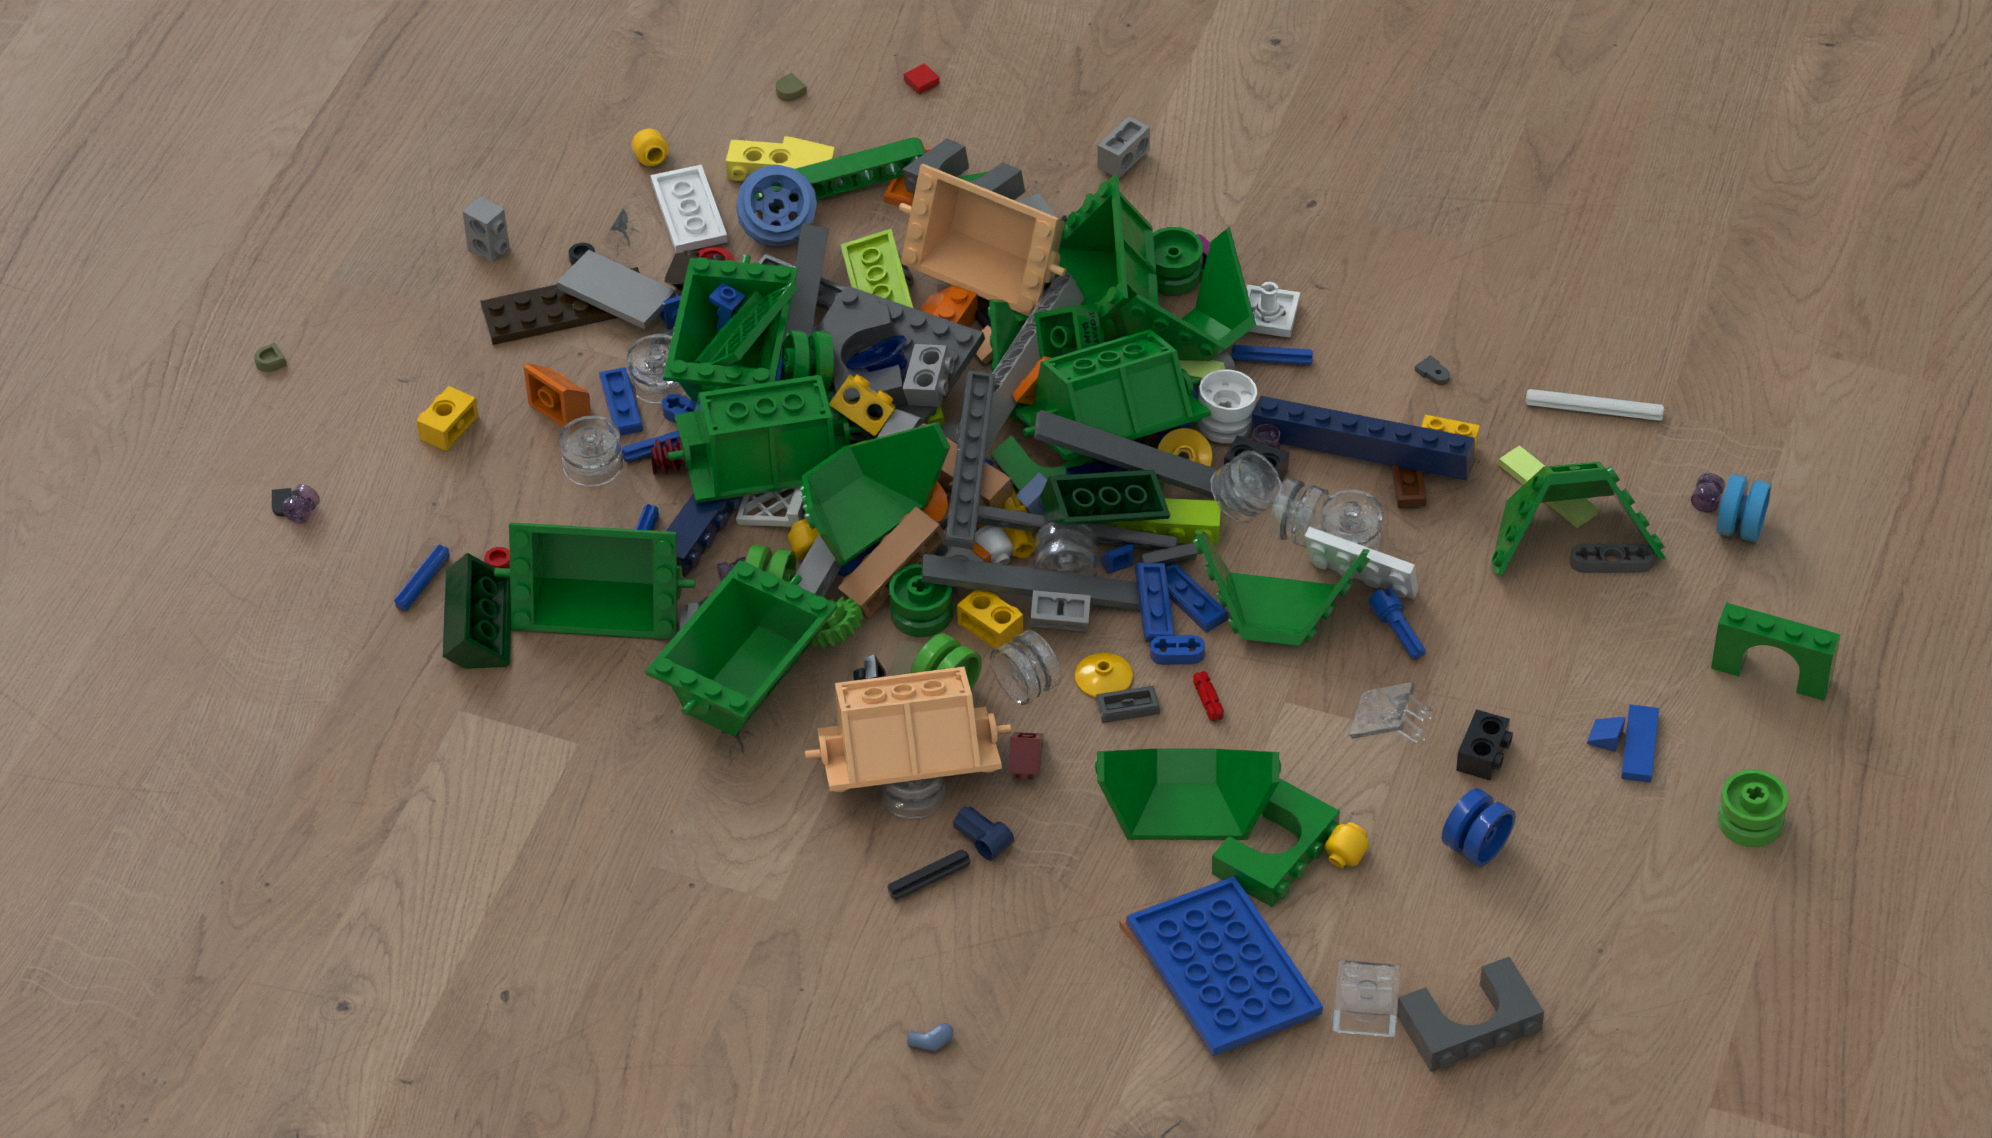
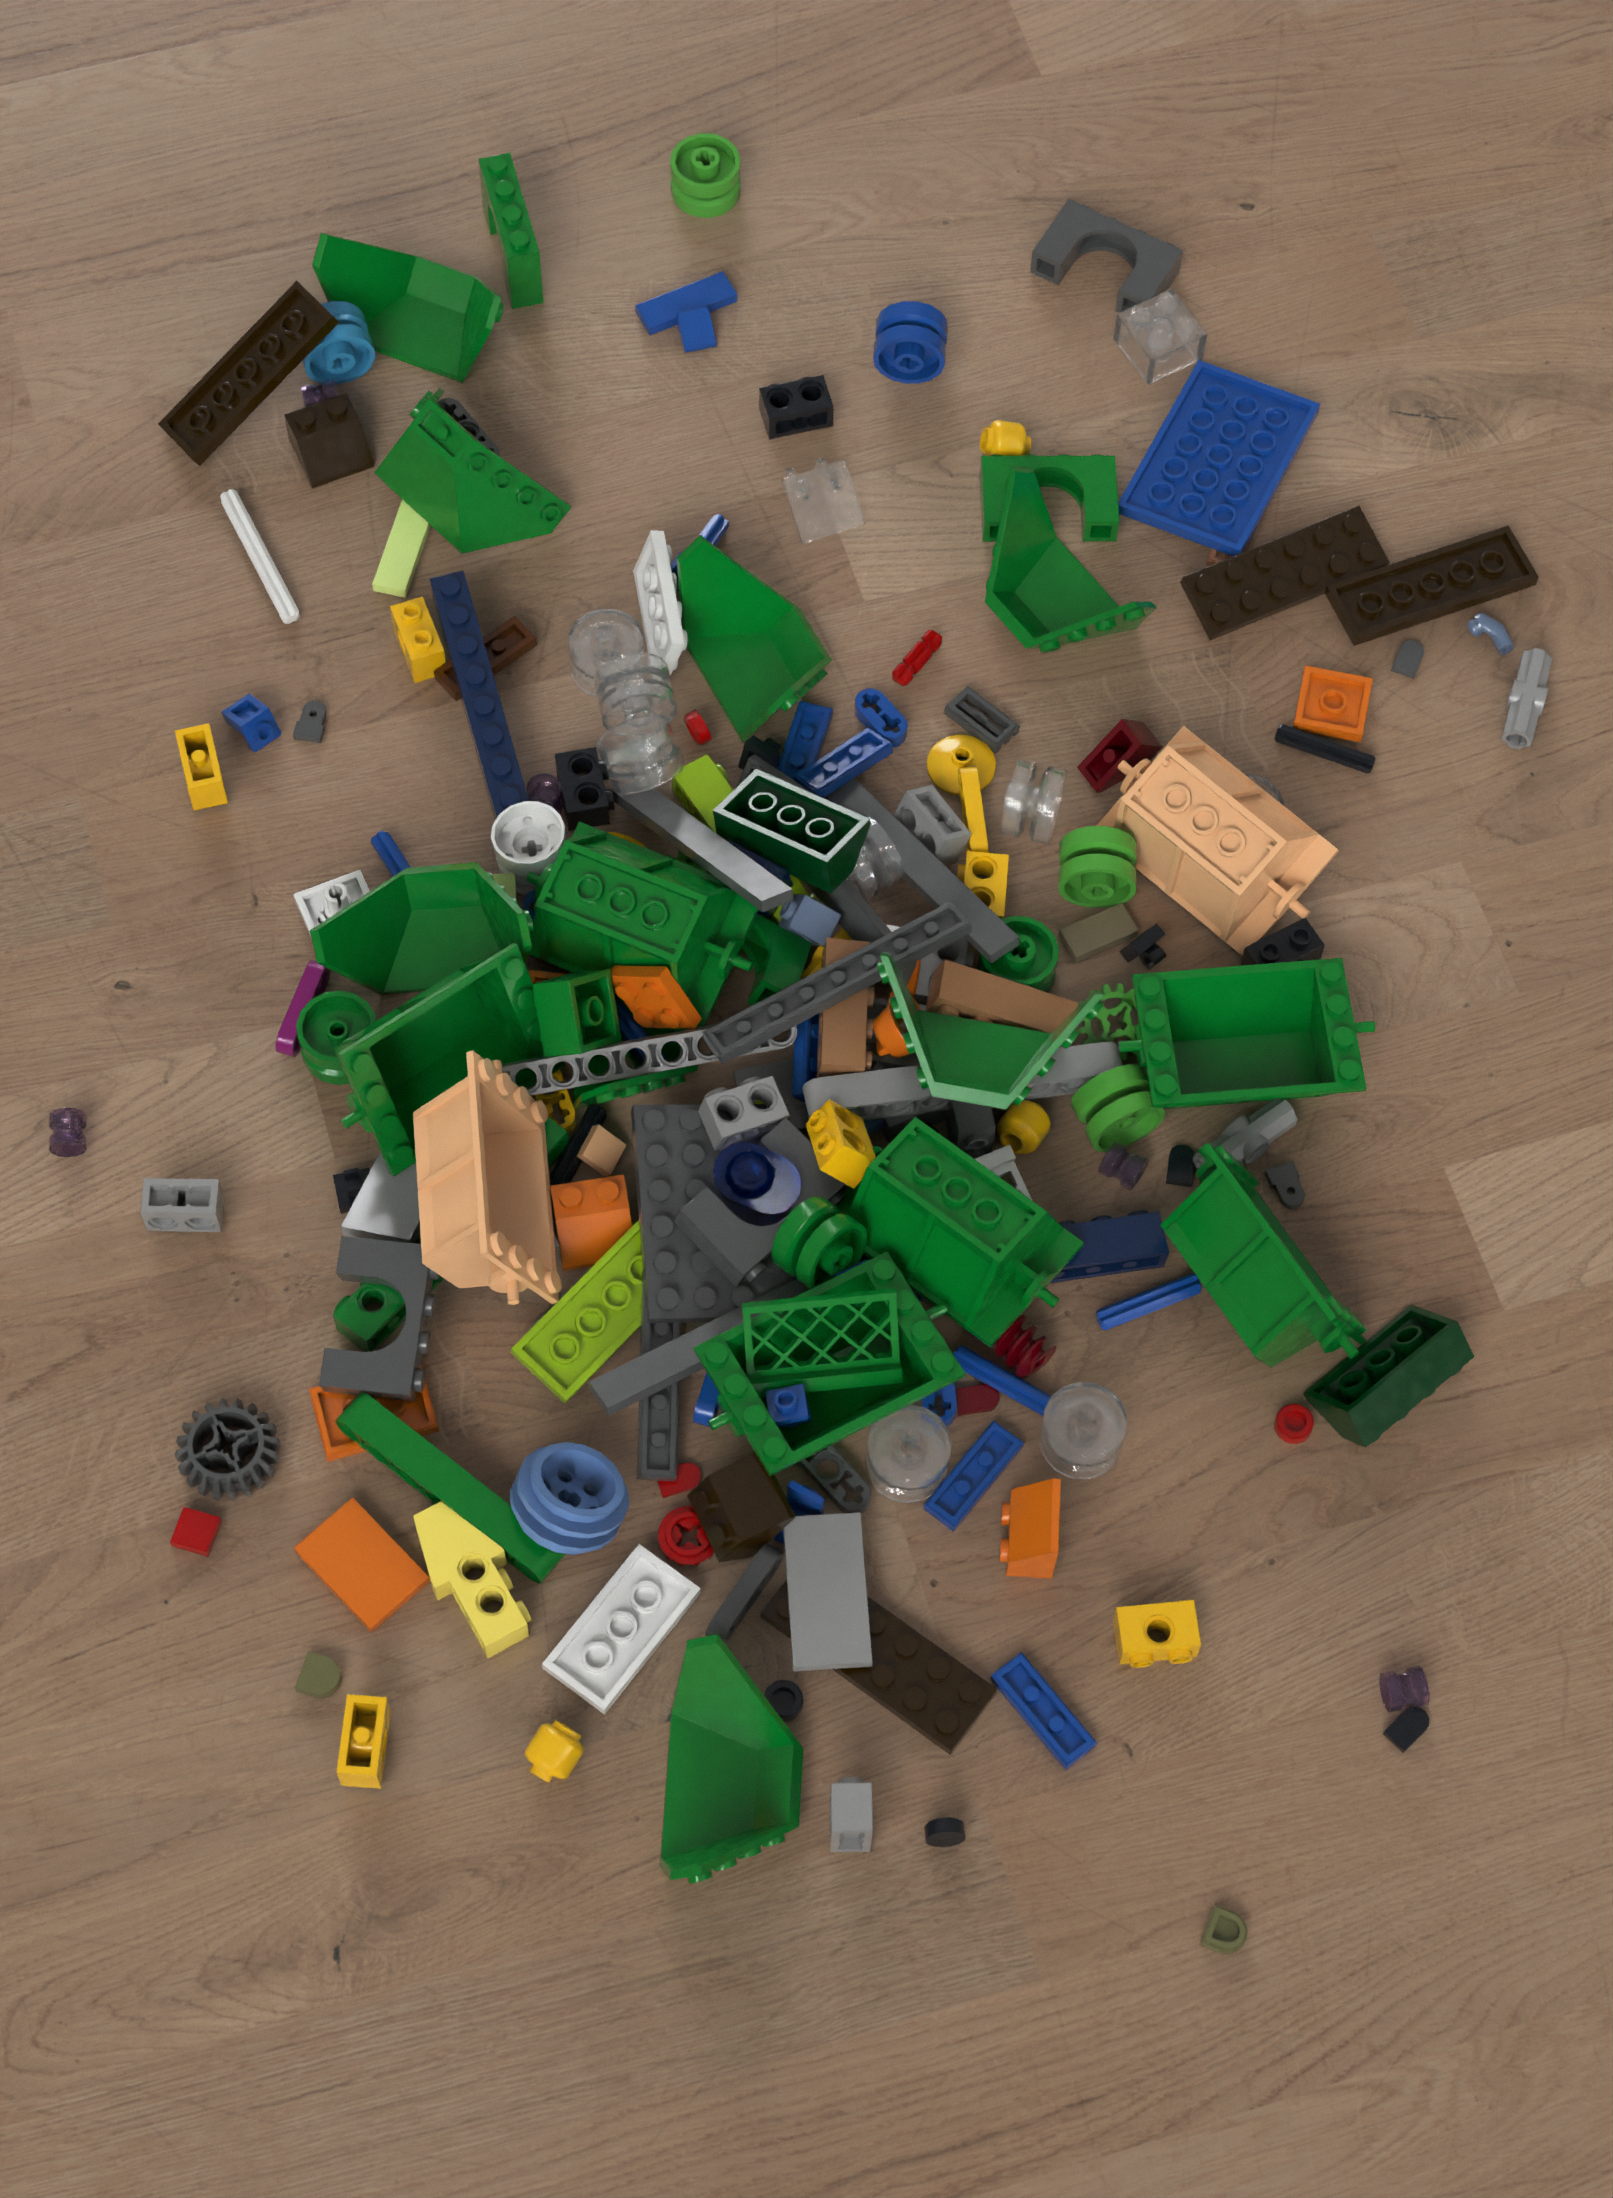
camera: 130 degrees left, 15 degrees up
(421, 577) = (1383, 1480): blue axle -> none
(441, 273) = (944, 1832): none -> black tile
(460, 354) = (1043, 1711): none -> blue tile
(548, 198) = (728, 1767): none -> green piece
(643, 653) = (1284, 1179): none -> dark grey piece
(652, 259) = (745, 1592): none -> dark grey beam
(665, 426) = (976, 1399): none -> dark red piece
(730, 76) = (363, 1741): none -> yellow brick
(794, 738) = (1289, 944): none -> black brick
(841, 129) = (362, 1564): none -> orange tile
(857, 1015) = (1526, 698): none -> light grey piece
(954, 105) = (259, 1434): none -> dark grey gear
(957, 978) = (1408, 658): none -> dark grey piece
(958, 899) = (1332, 703): none -> orange plate
(988, 837) = (1243, 727): dark blue piece -> none
(1001, 1026) = (1431, 585): none -> dark brown plate
(1067, 650) = (972, 809): none -> yellow beam
(1090, 944) = (1283, 572): none -> dark brown plate
(1195, 564) = (766, 750): none -> black tile
(1223, 128) = (67, 1132): none -> wheel
(1252, 546) = (697, 728): none -> red tile
(1434, 289) = (201, 766): none -> yellow brick
(1457, 334) = (253, 721): none -> blue bracket
(1664, 479) = (329, 440): none -> dark brown slope
(1745, 442) = (248, 373): none -> dark brown plate
(1758, 577) = (410, 303): none -> green piece

